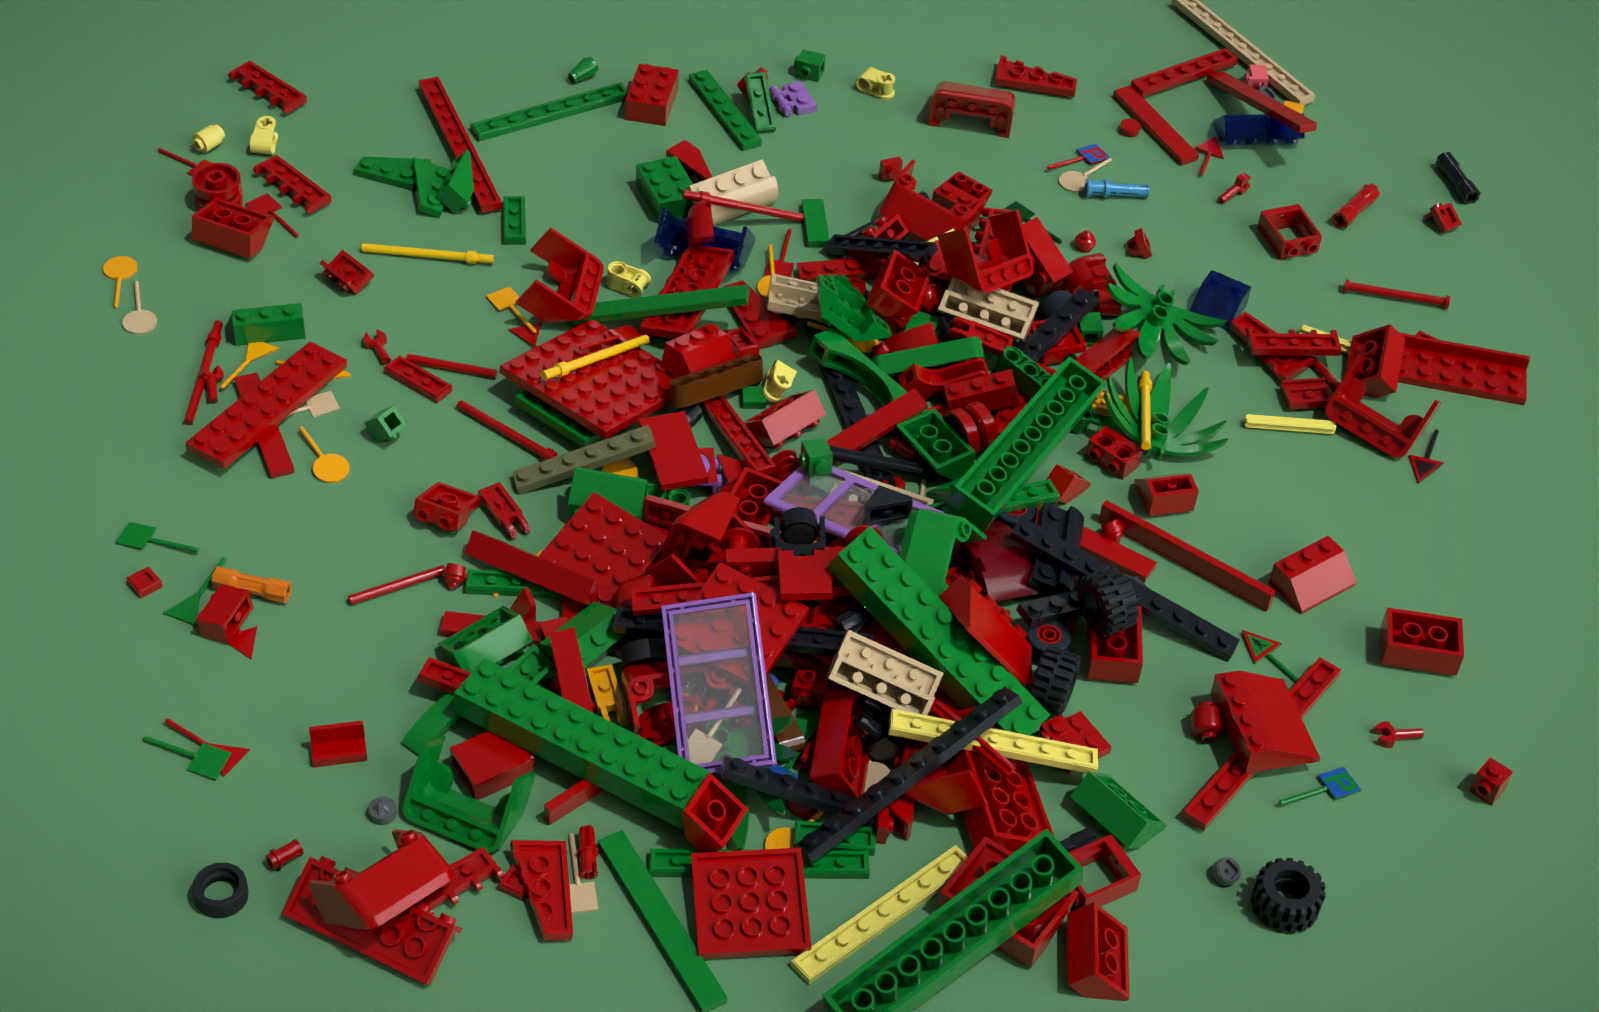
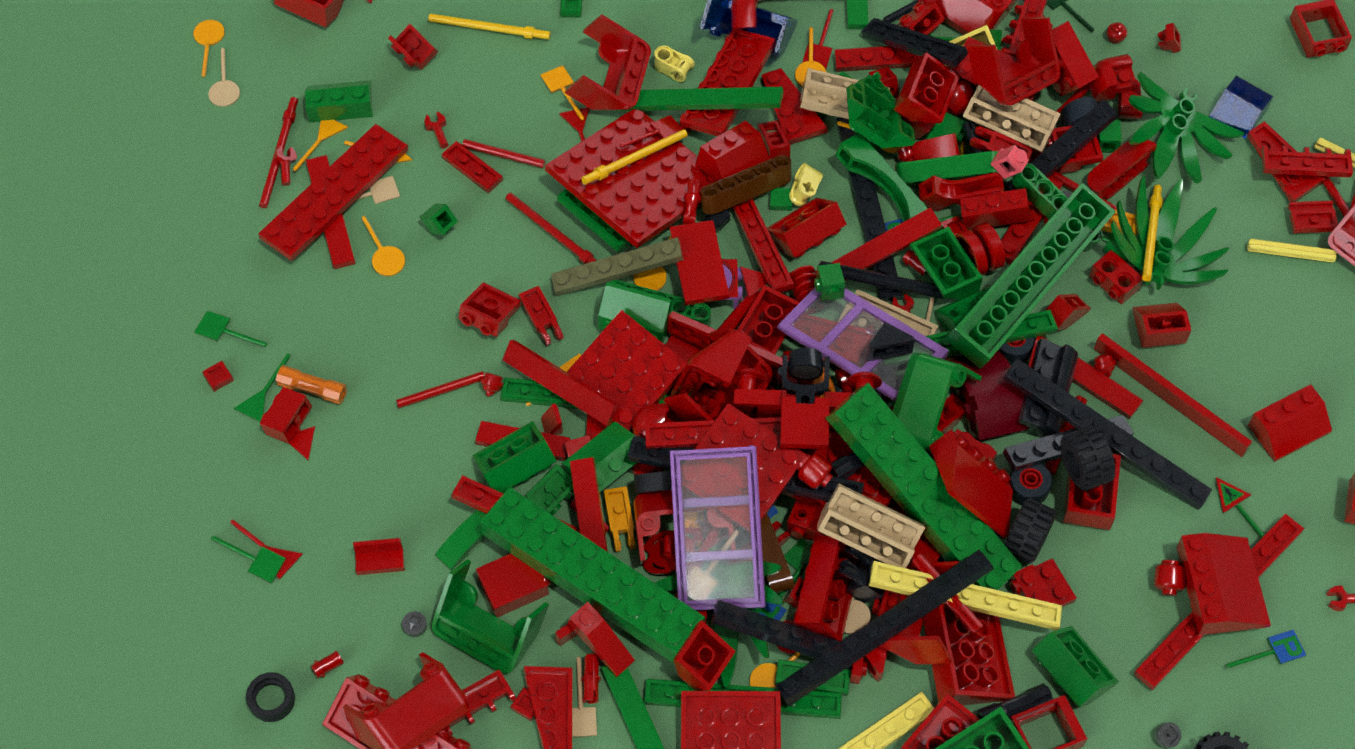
camera: 10 degrees right, 15 degrees up
(596, 805) = (601, 639): none -> red slope
(660, 393) = (692, 199): none -> red piece
(819, 622) = (815, 471): none -> red head
(996, 340) = (1014, 157): none -> coral brick

